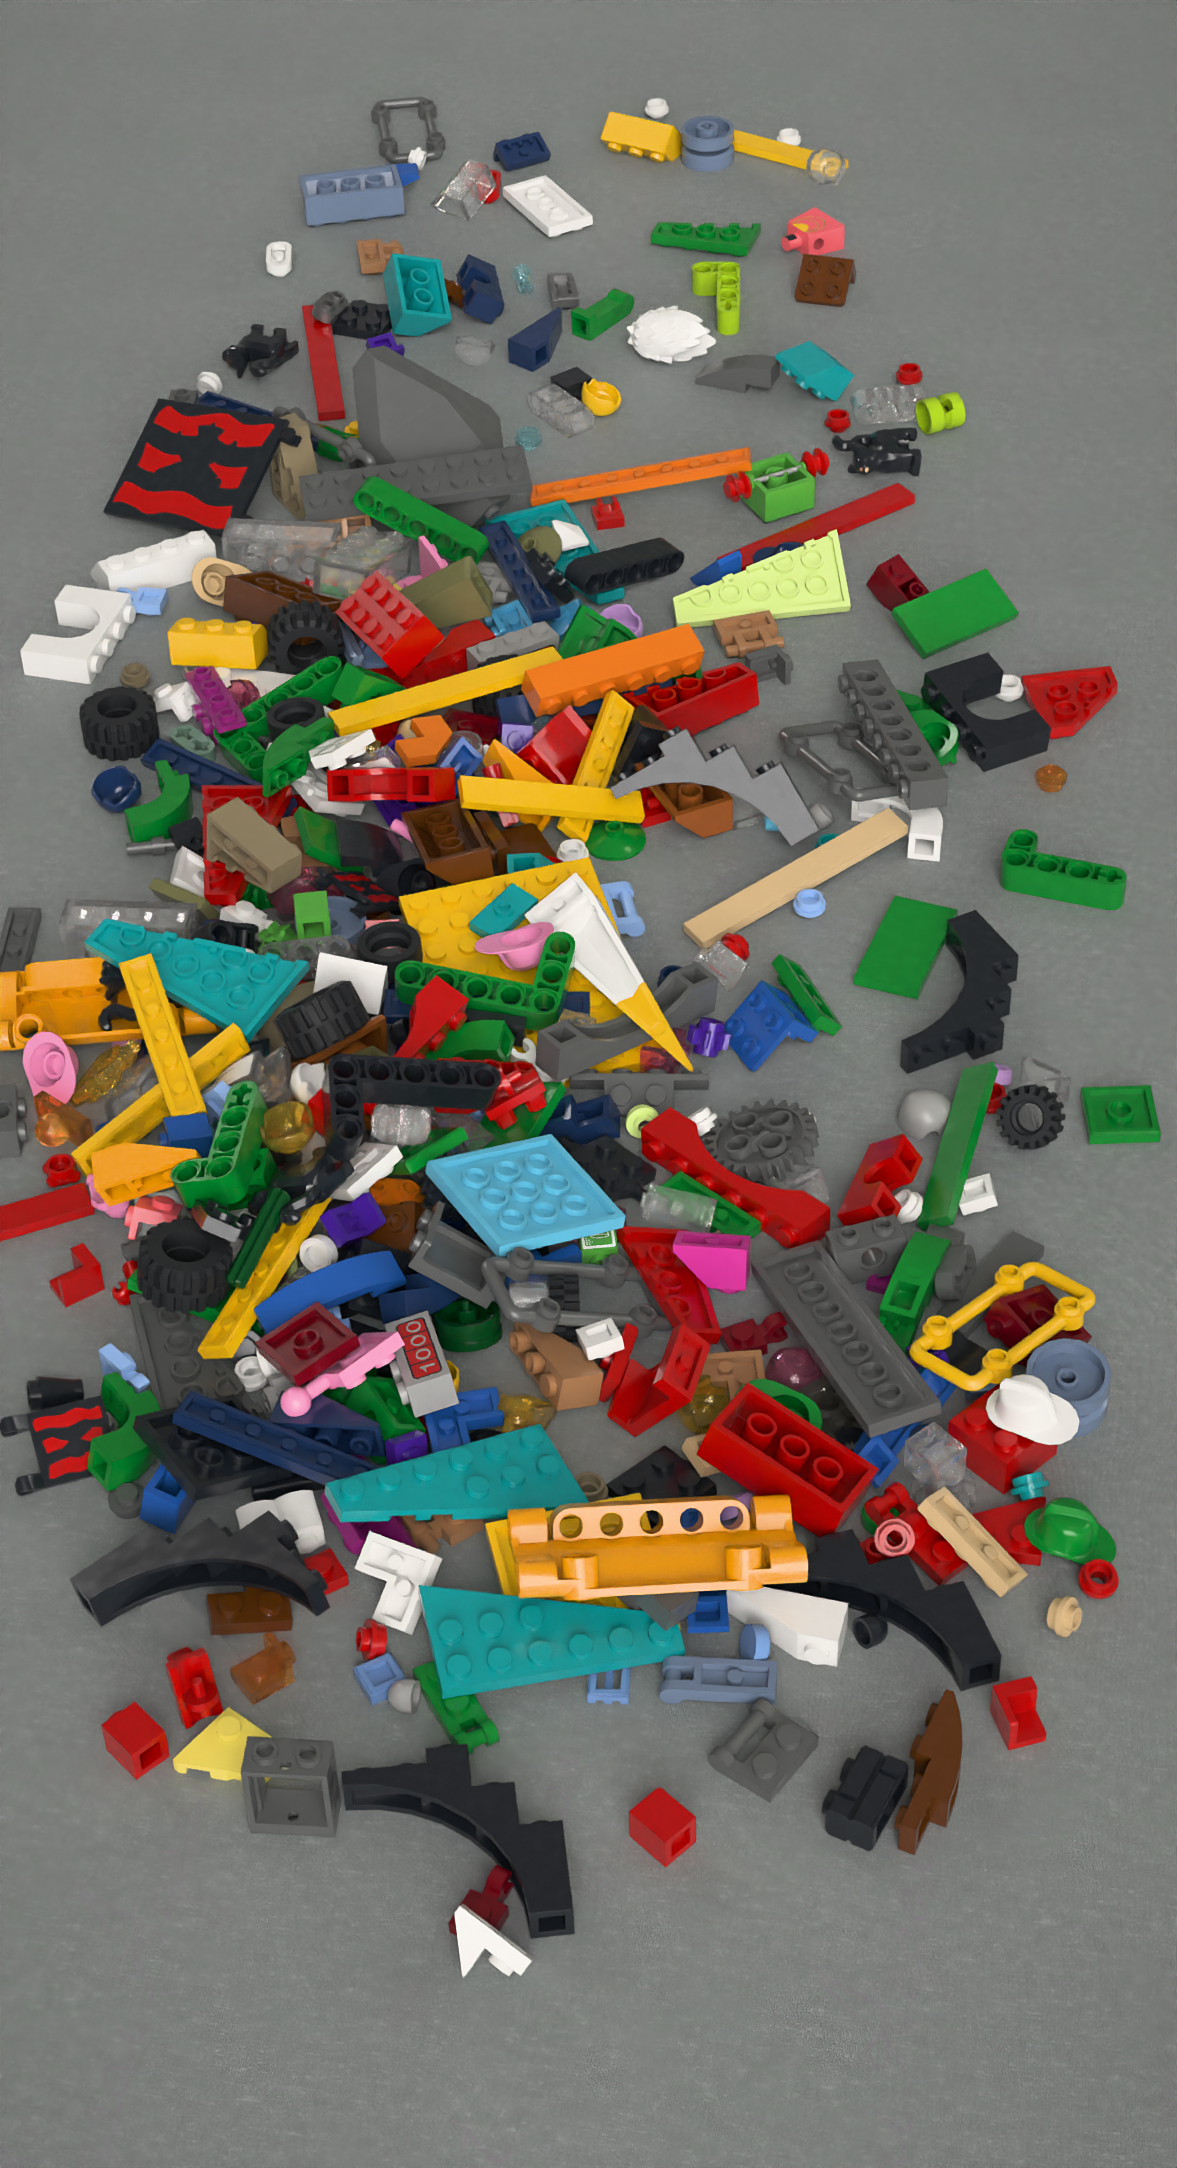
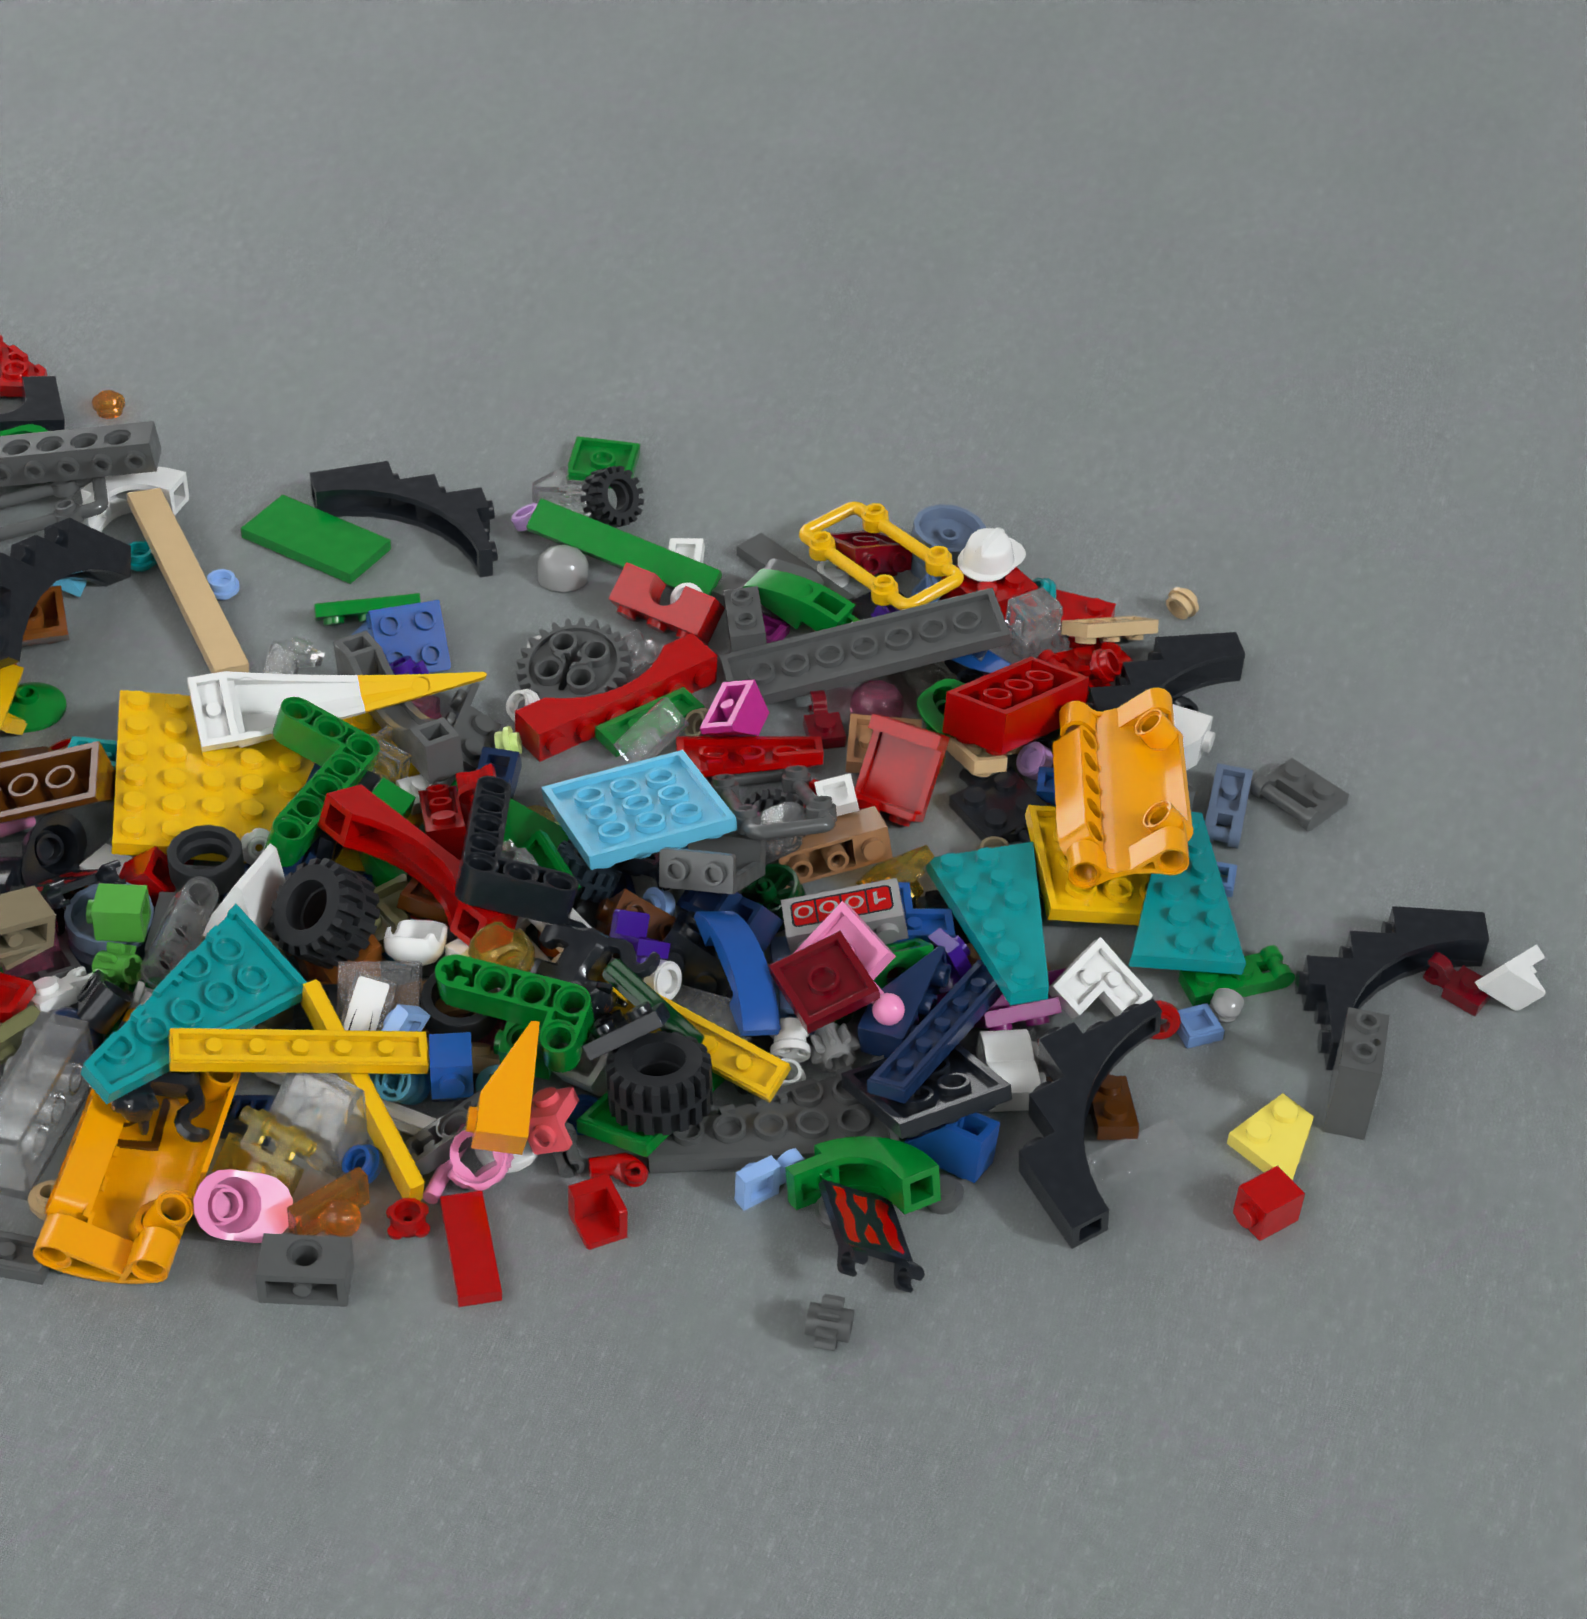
camera: 85 degrees left, 0 degrees up
(52, 1392) = (777, 1247): black cone -> none
(193, 1685) = (1218, 1144): red hips -> none
(265, 1671) = (1182, 1102): clear orange bracket -> none
(503, 912) = (189, 763): teal plate -> none
(518, 948) = (253, 751): bright pink piece -> none
(572, 850) = (45, 733): white plate -> none
(612, 1167) = (569, 765): black plate -> none
(662, 1826) = (1391, 854): red panel -> none
(736, 944) = (264, 639): red plate -> none
(754, 1642) = (1199, 774): medium blue tile -> none
(865, 1798) = (1360, 739): black brick -> none
(935, 1773) = (1334, 693): reddish brown slope -> none
(1016, 1714) = (1276, 651): red panel -> none
(1059, 877) = (265, 430): green beam -> none
(1069, 1531) = (1098, 579): green piece -> none
(1102, 1570) = (1143, 579): red plate -> none

